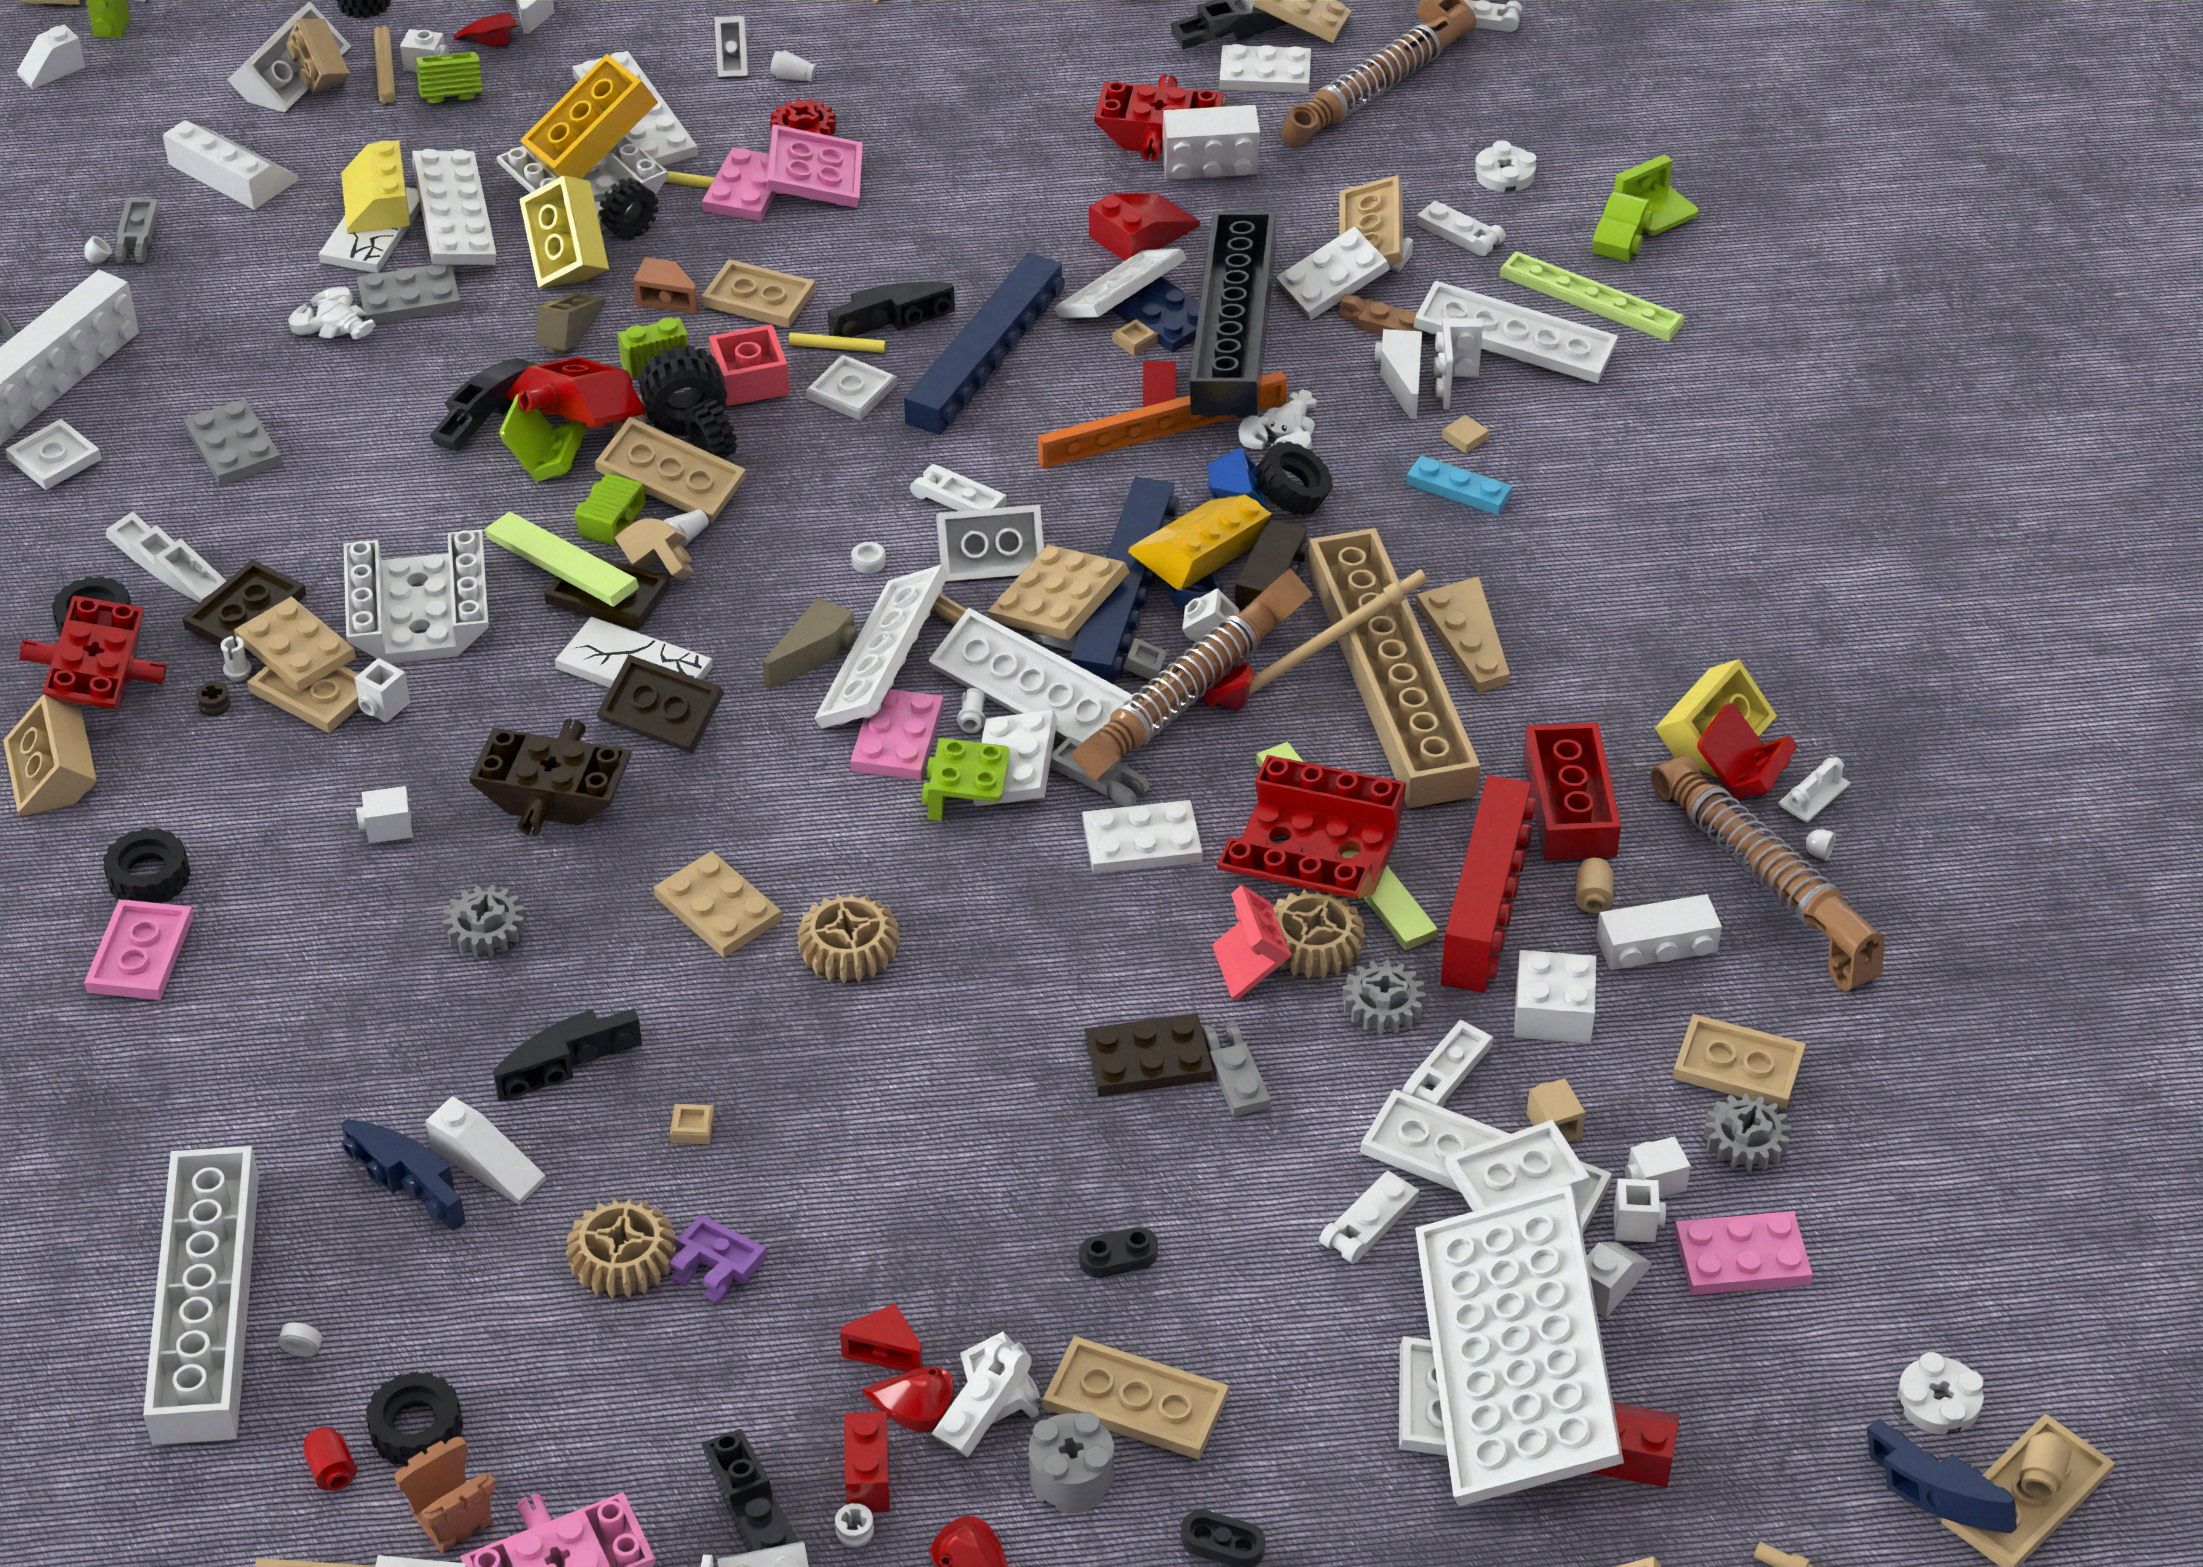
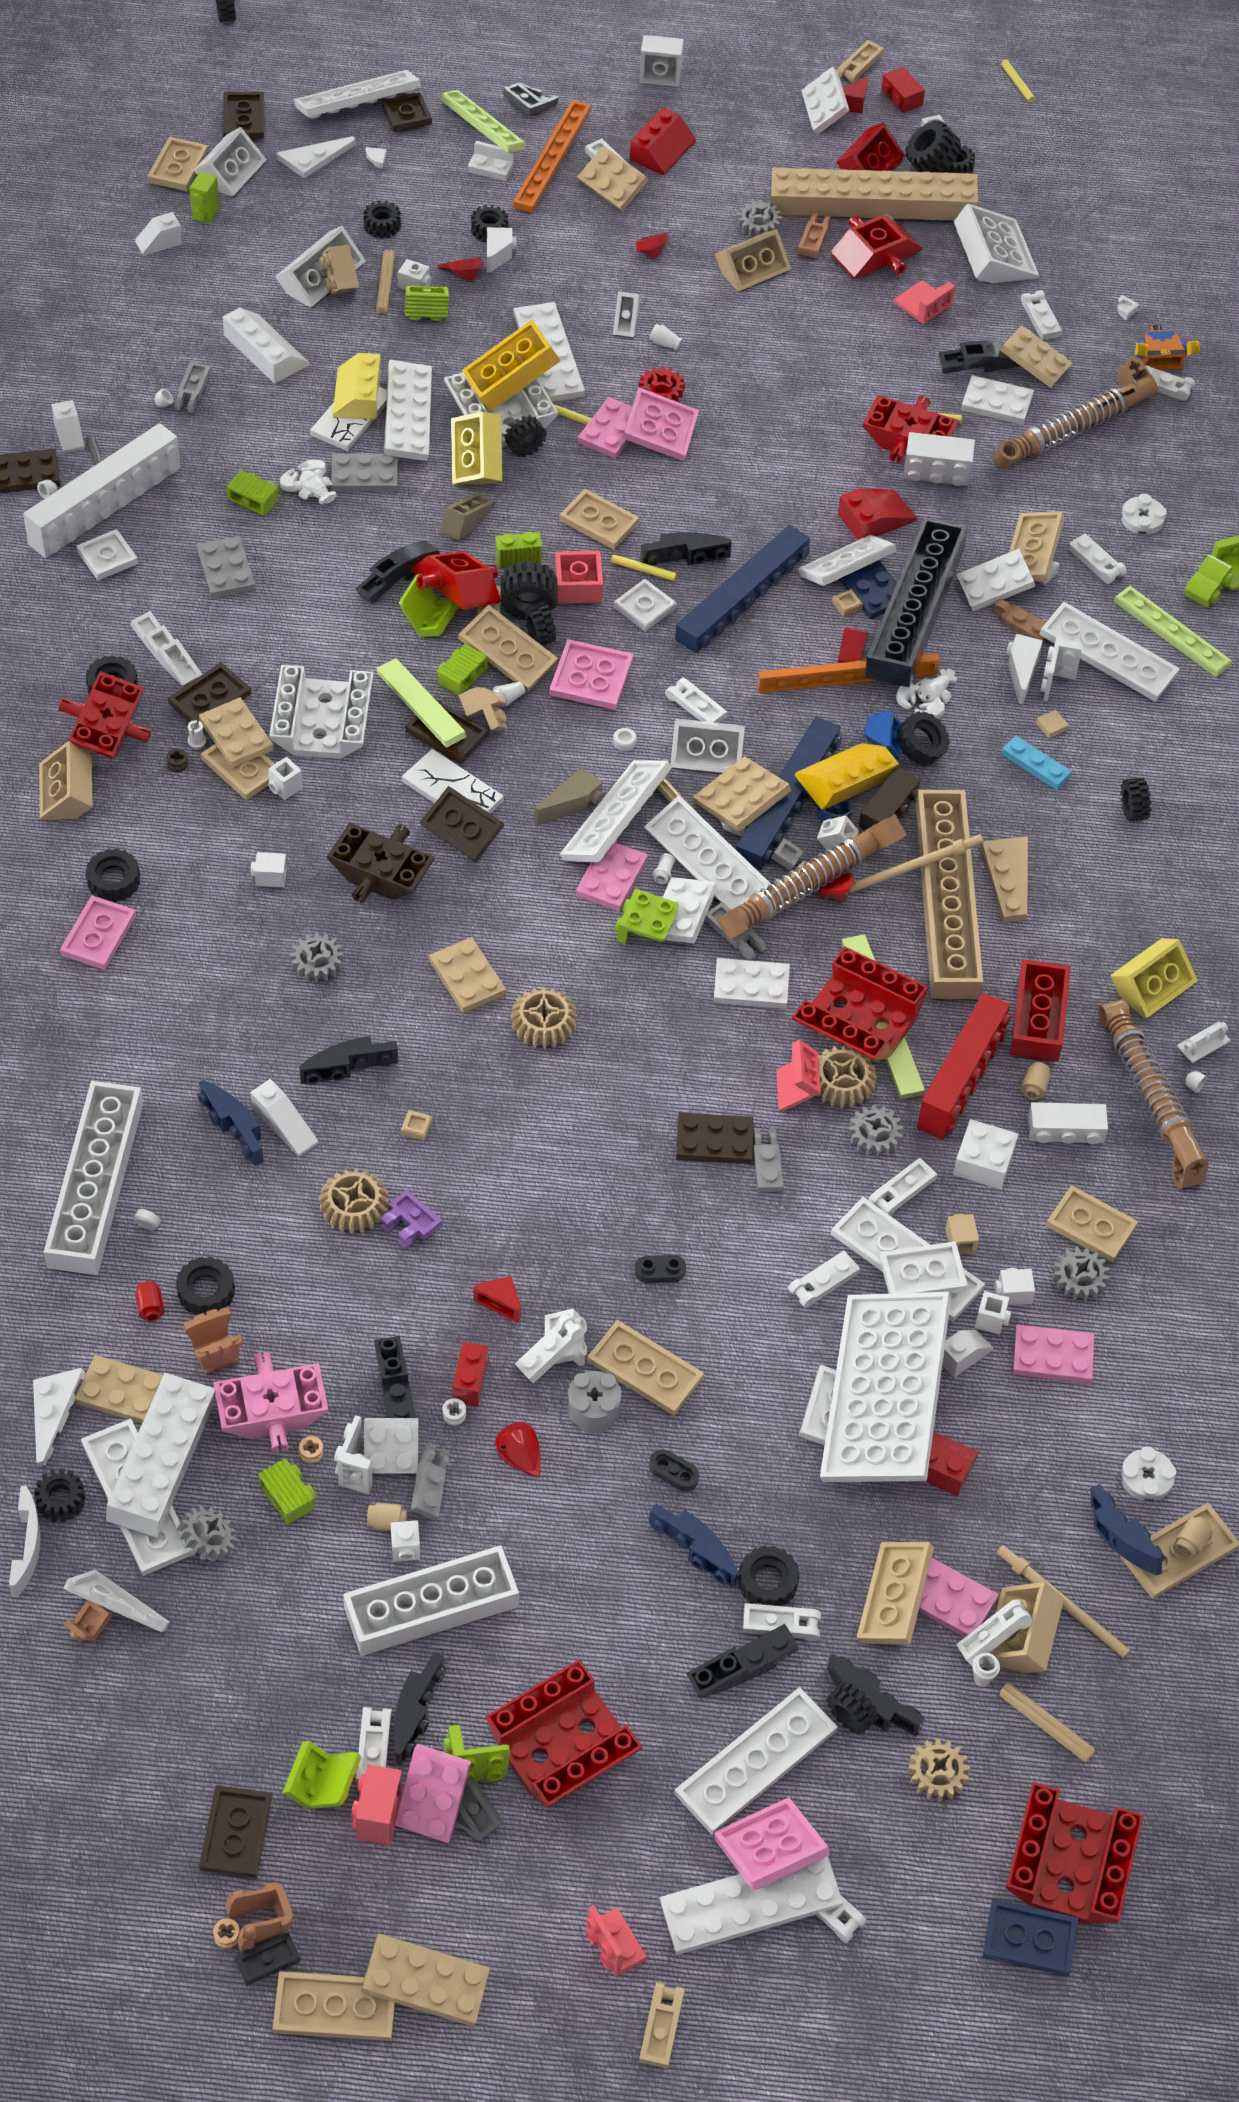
camera: 10 degrees right, 10 degrees up
(252, 342) = (252, 492): none -> lime brick
(664, 286) = (536, 501): nougat slope -> none
(798, 484) = (591, 674): none -> bright pink plate
(914, 1398) = (510, 1338): red piece -> none
(1614, 501) = (1135, 799): none -> black tyre
(1741, 757) = (1161, 1006): red bracket -> none

